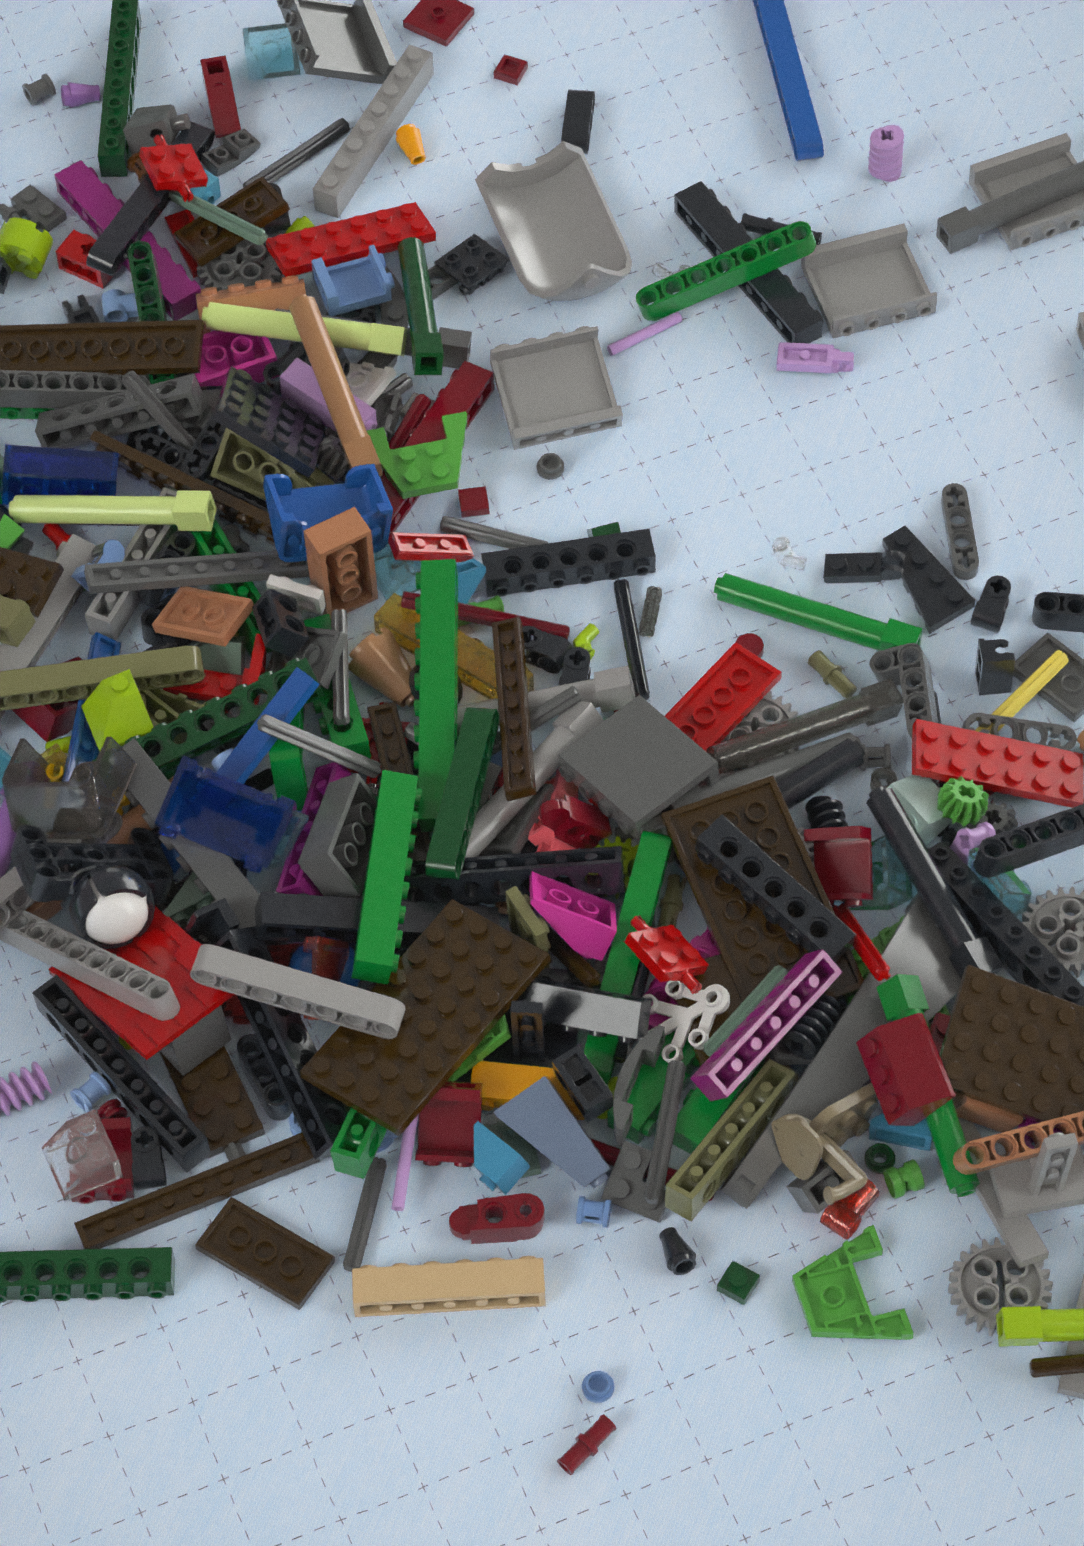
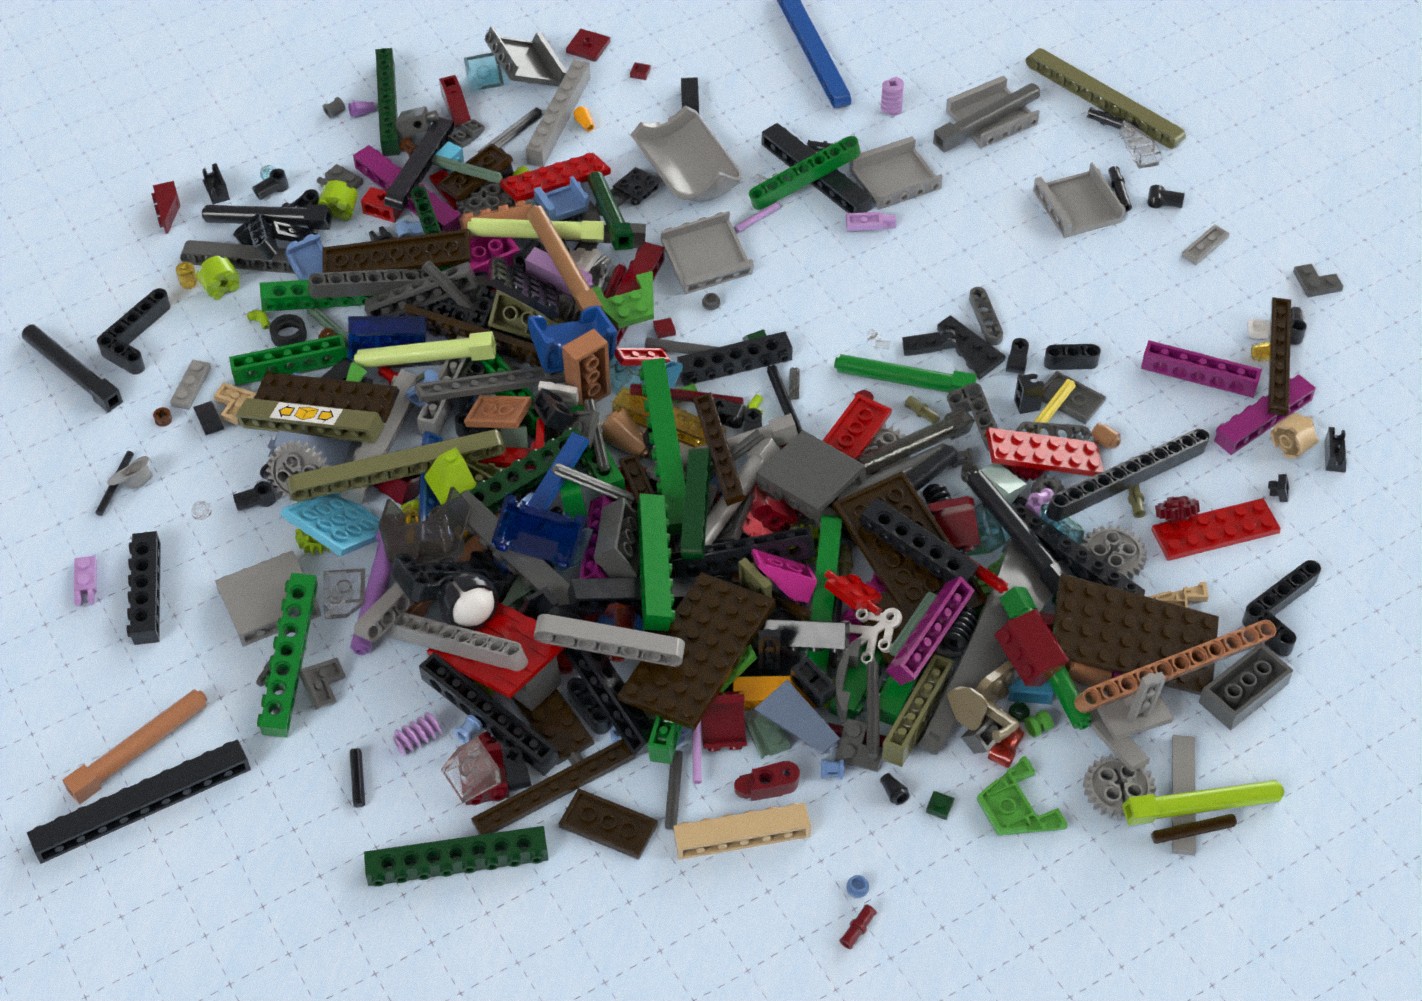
camera: 10 degrees left, 5 degrees down
(173, 167) = (432, 142): red plate -> none
(496, 1160) = (760, 741): dark azure slope -> none
(962, 801) = (1028, 476): bright green gear -> none

